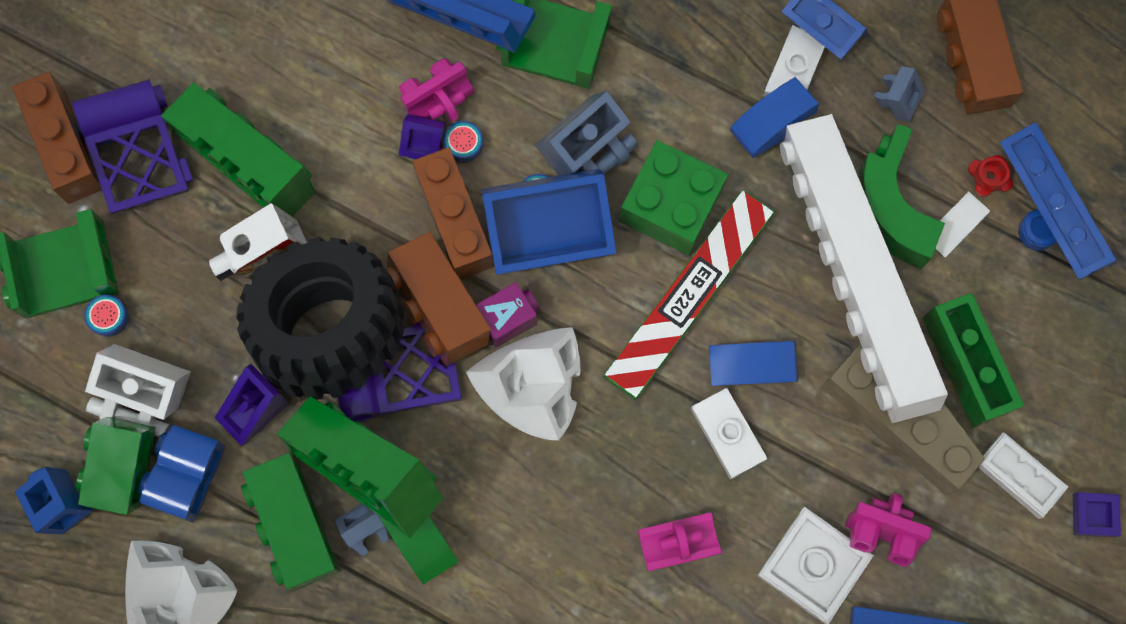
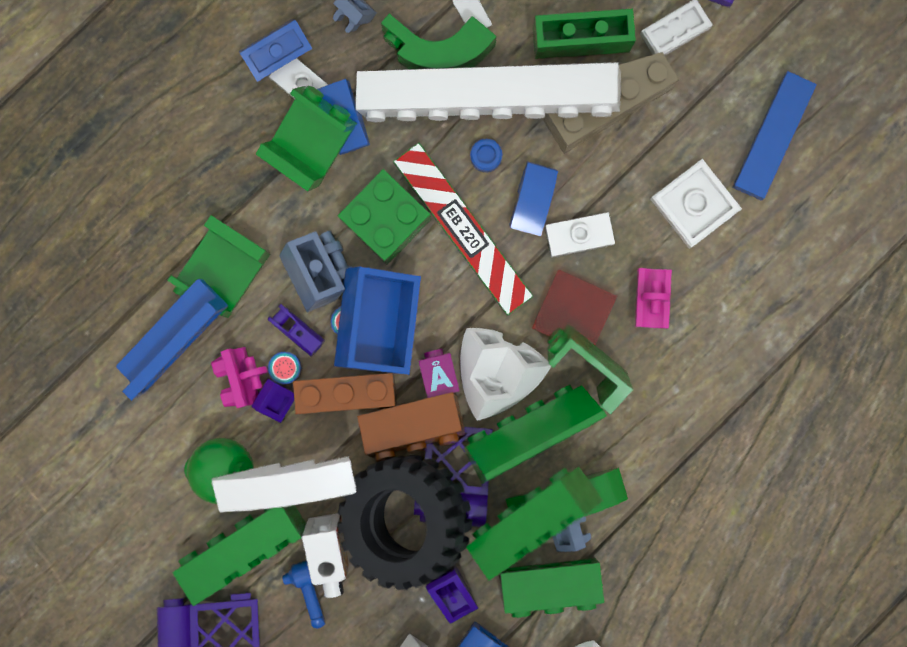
camera: 70 degrees left, 10 degrees up
(223, 222) = (300, 578): none -> blue piece
(323, 100) = (215, 459): none -> green brick
(325, 165) = (284, 486): none -> white slope
(467, 440) = (532, 433): none -> green slope
(509, 144) = (300, 333): none -> dark purple bar
(582, 488) = (615, 385): none -> green panel
(632, 454) = (574, 303): none -> clear red tile
(734, 85) = (308, 138): none -> green panel
(786, 295) = (486, 155): none -> blue tile
(888, 523) = (680, 153): dark pink hips -> none

